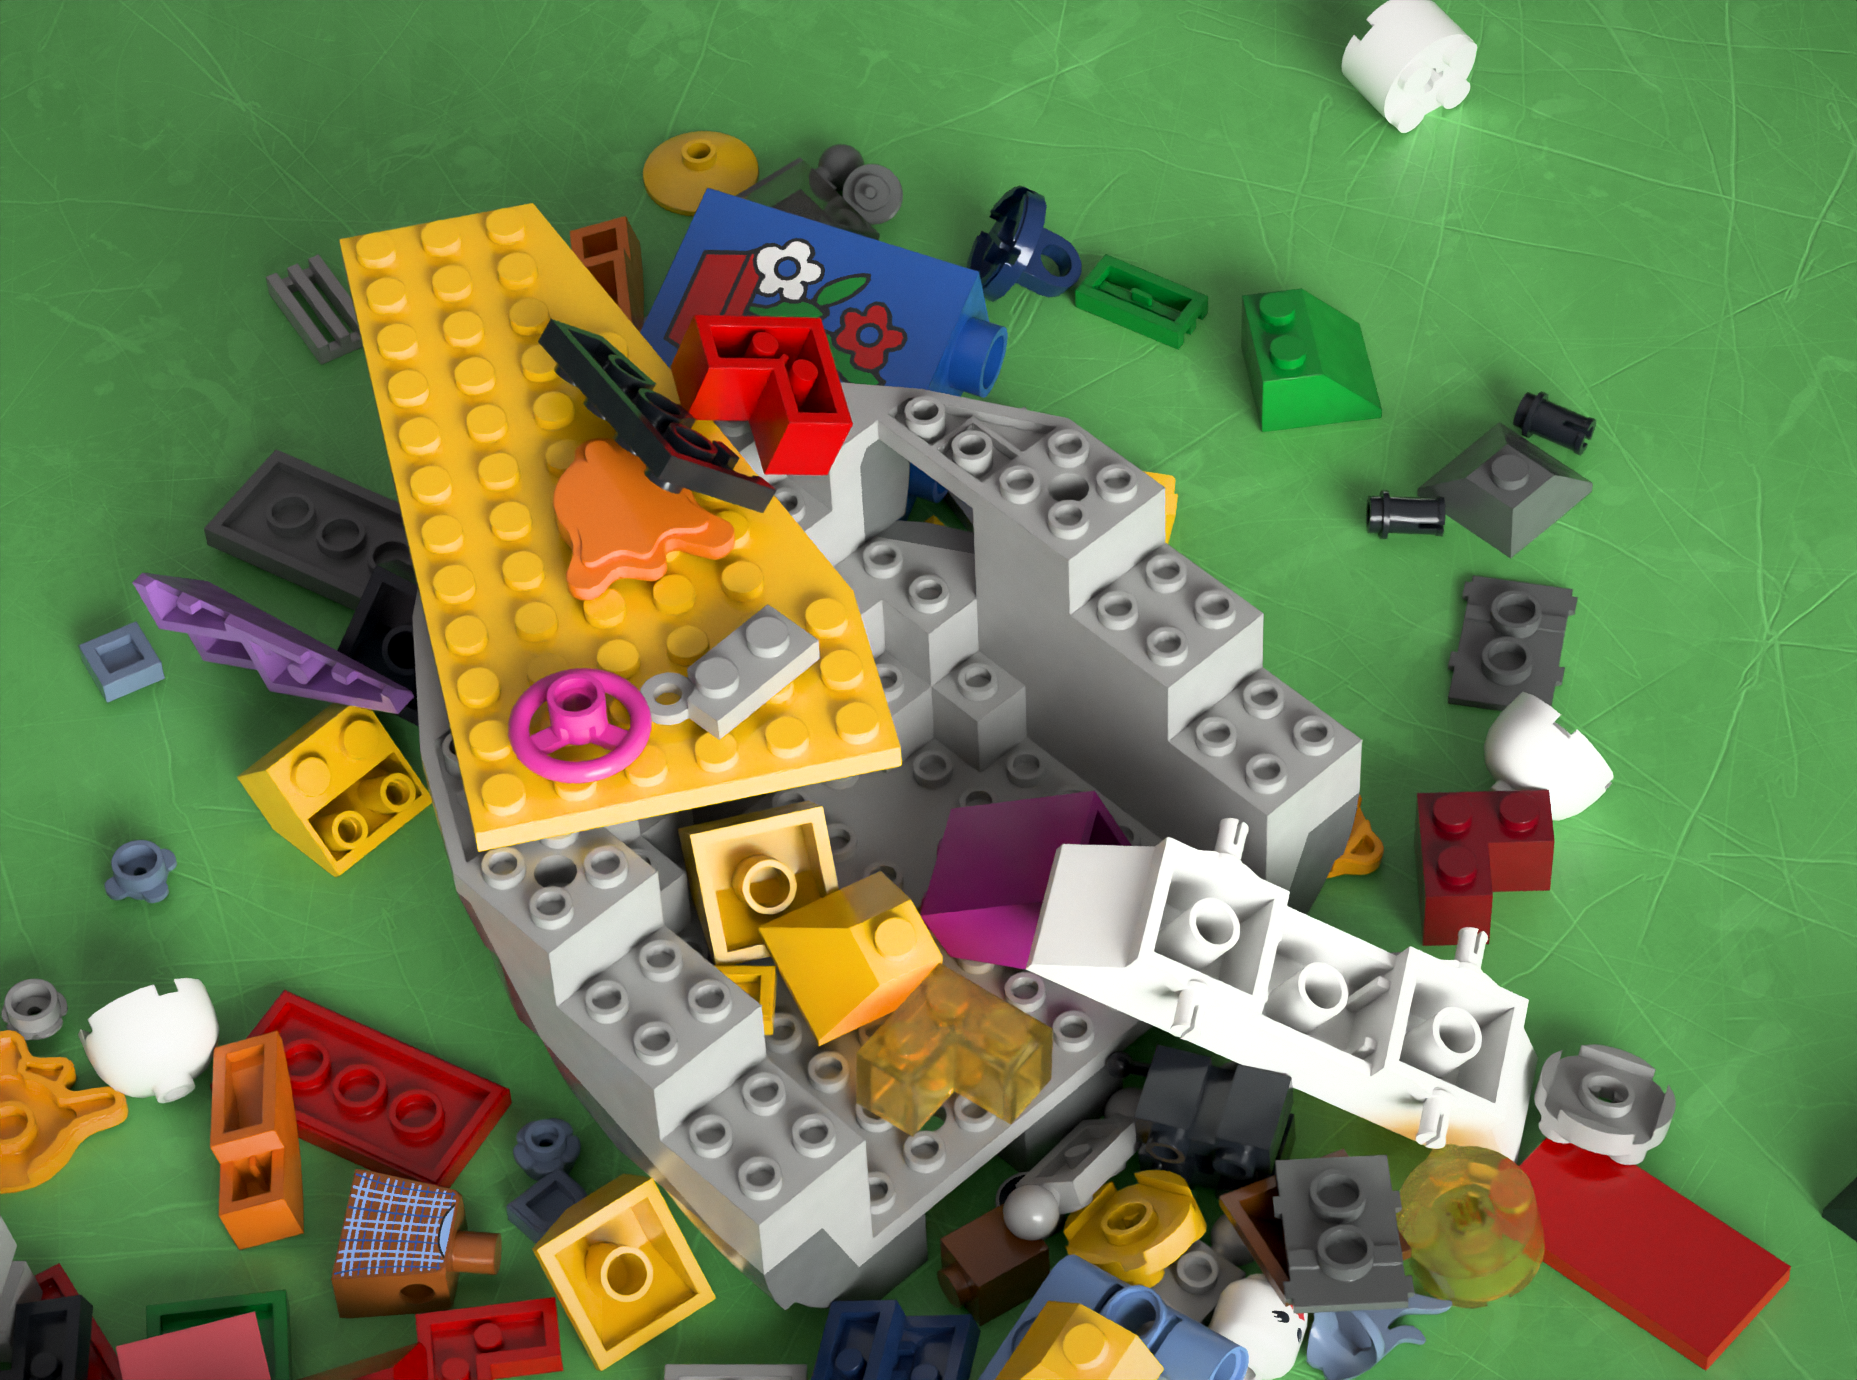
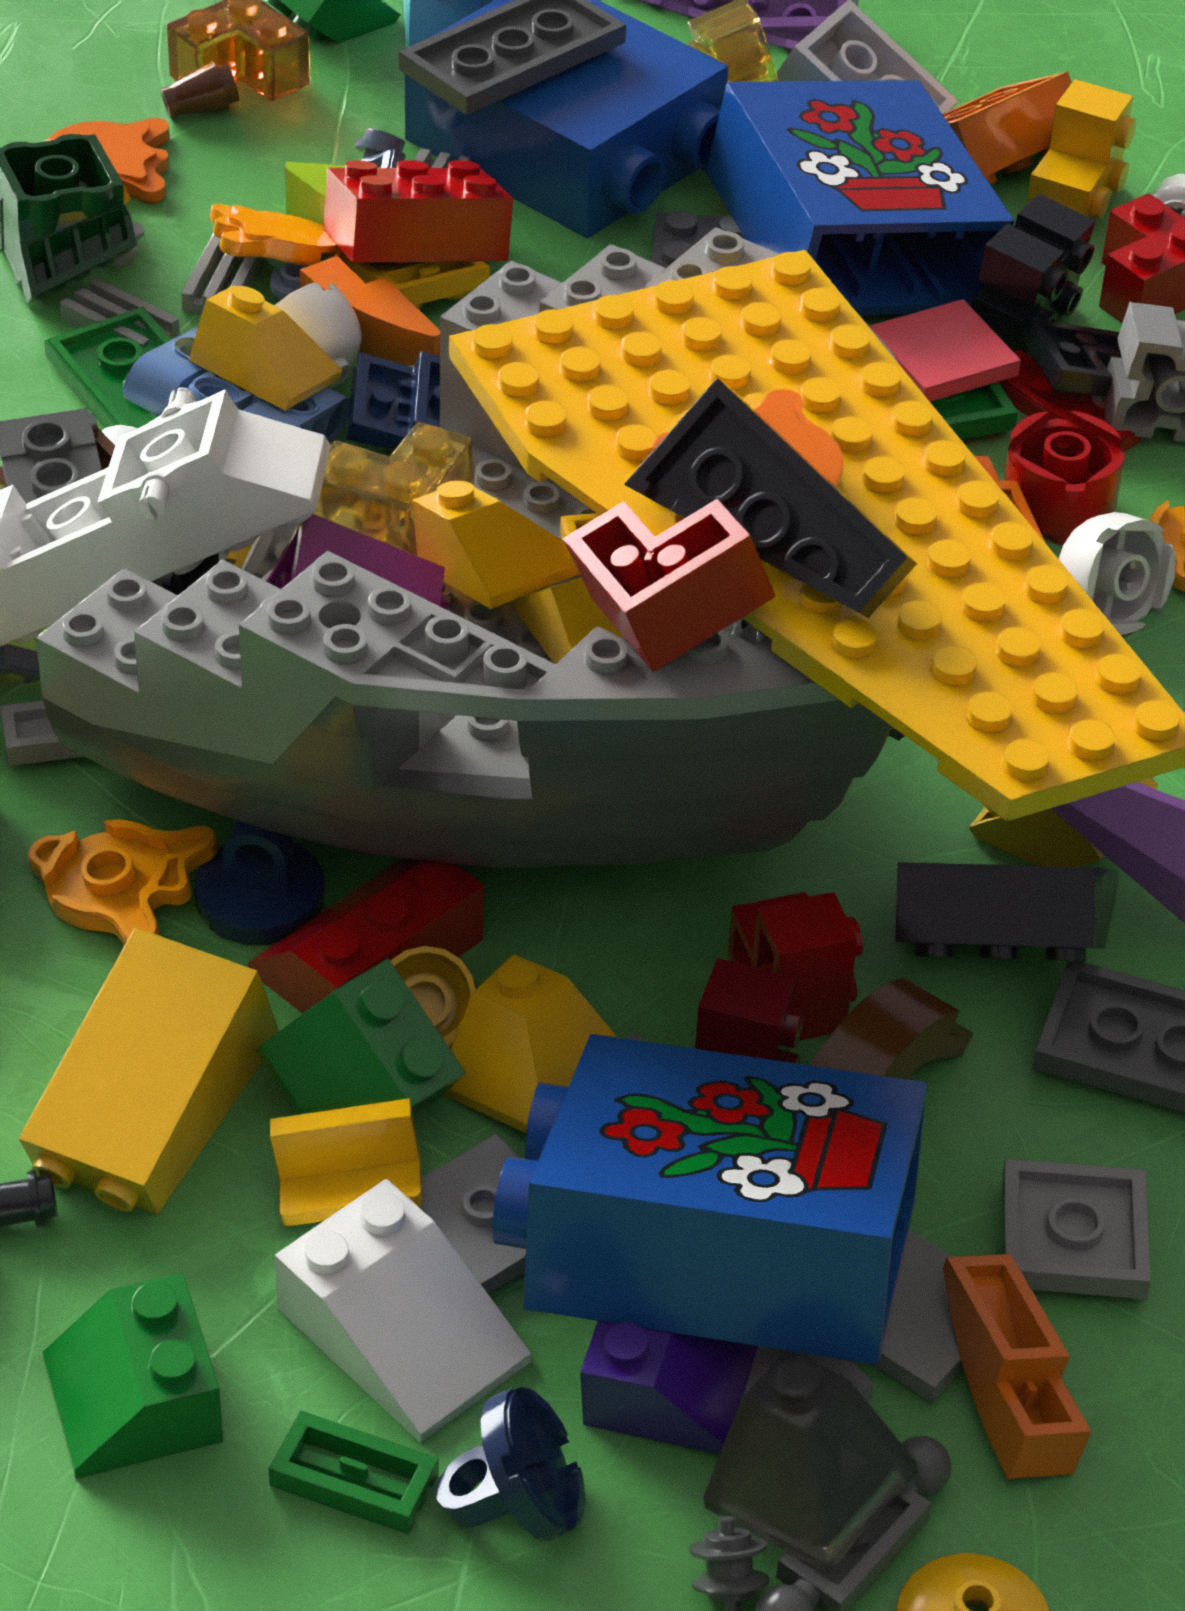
camera: 165 degrees right, 5 degrees down
(142, 1183) = (1065, 469): none -> red brick
(579, 718) = (740, 282): dark pink piece -> none
(735, 674) = (612, 342): light grey hinge -> none
(1101, 385) = (398, 1310): none -> white slope
(1299, 561) = (150, 1073): none -> yellow slope

